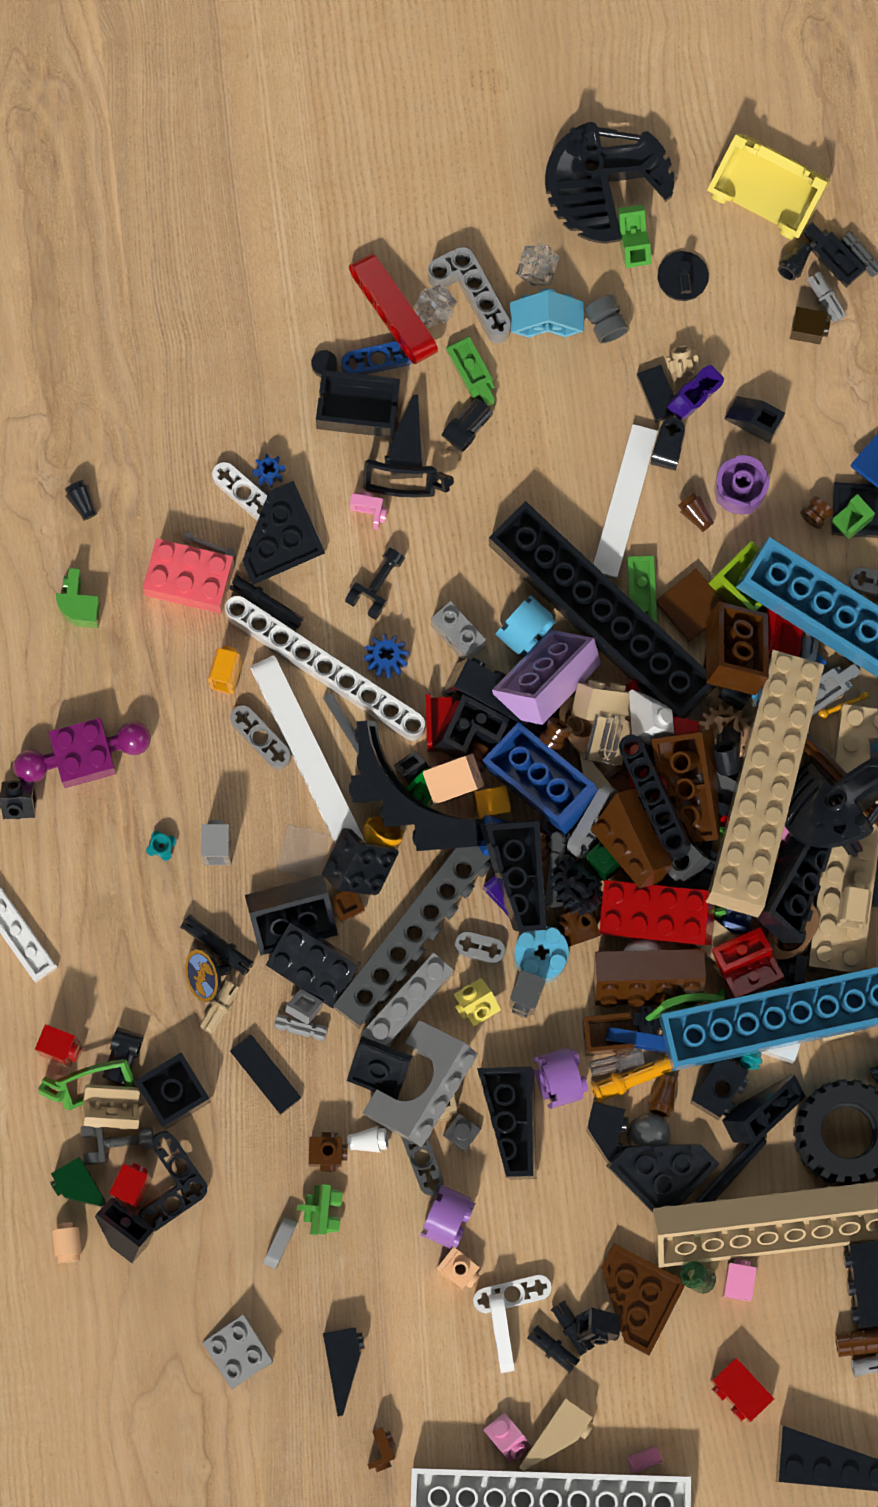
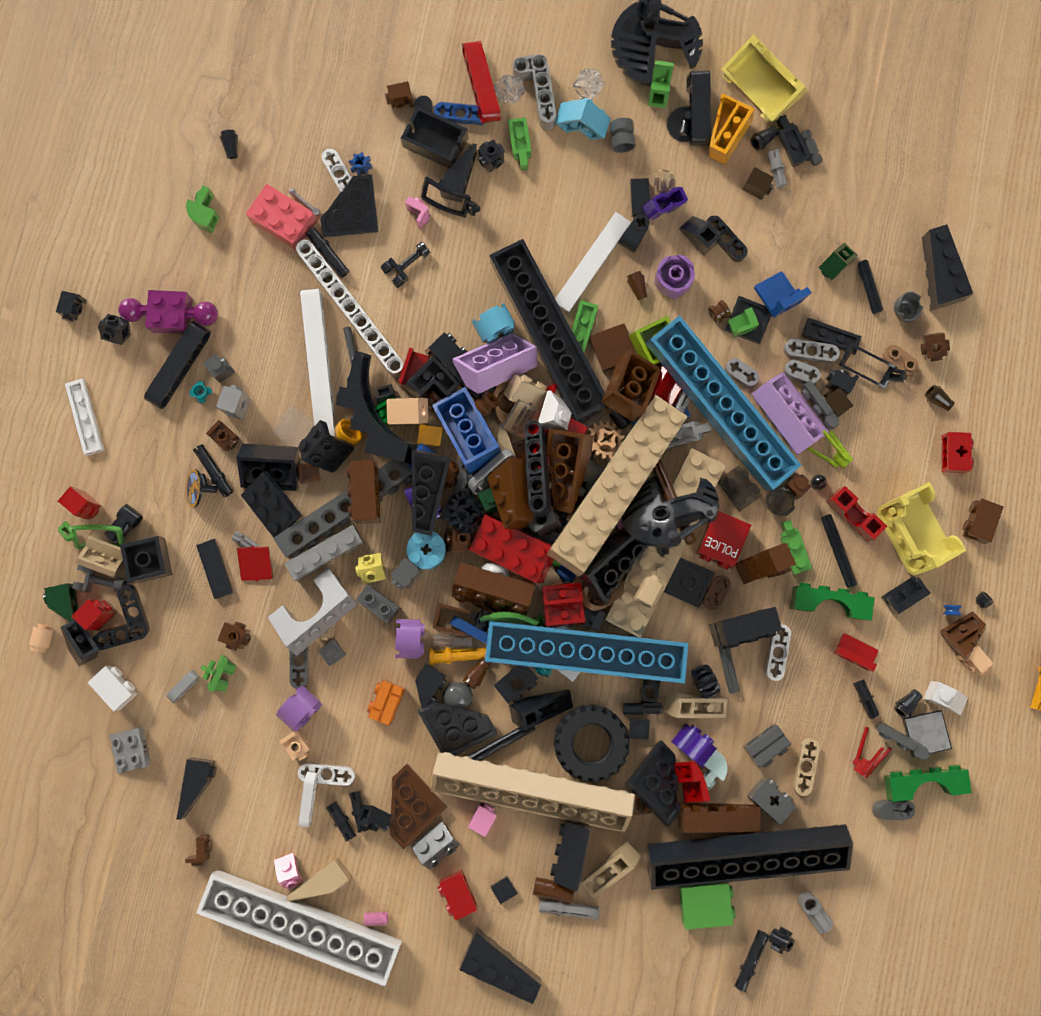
camera: 20 degrees right, 5 degrees up
(118, 820) = (177, 365): none -> black beam
(176, 805) = (219, 368): none -> dark grey brick
(189, 1275) = (113, 687): none -> white brick
(219, 904) = (218, 430): none -> reddish brown brick
(219, 1007) = (199, 513): tan axle -> none
(225, 670) = (281, 287): light orange brick -> none
(268, 756) = (282, 331): light grey beam -> none
(288, 361) = (399, 95): none -> reddish brown brick
(304, 1006) = (255, 531): light grey plate -> none
(318, 1048) = (254, 563): none -> red piece
(371, 1140) = (267, 637): white cone -> none
(379, 1067) = (289, 591): black tile -> none
(384, 664) = (387, 316): blue gear -> none
(437, 902) = (364, 492): none -> reddish brown brick
(439, 410) = (491, 155): none -> black brick
(458, 632) = (448, 313): light grey brick -> none
(463, 430) = (499, 179): black piece -> none
(481, 941) = (391, 528): light grey beam -> none
(502, 1046) = (378, 604): none -> dark grey brick
(512, 1115) = (367, 656): black wedge -> none
(558, 1173) = (386, 702): none -> orange brick
(689, 1337) = (435, 846): none -> bracket
(697, 250) = (700, 107): none -> black beam
(698, 1277) = (454, 807): clear green brick -> none
(728, 752) = (599, 454): black piece -> none
(745, 261) = (730, 126): none -> light orange wedge
(799, 1365) = (503, 890): none -> black tile
(802, 408) = (725, 246): none -> black beam
(823, 714) = (676, 450): light orange hinge -> none

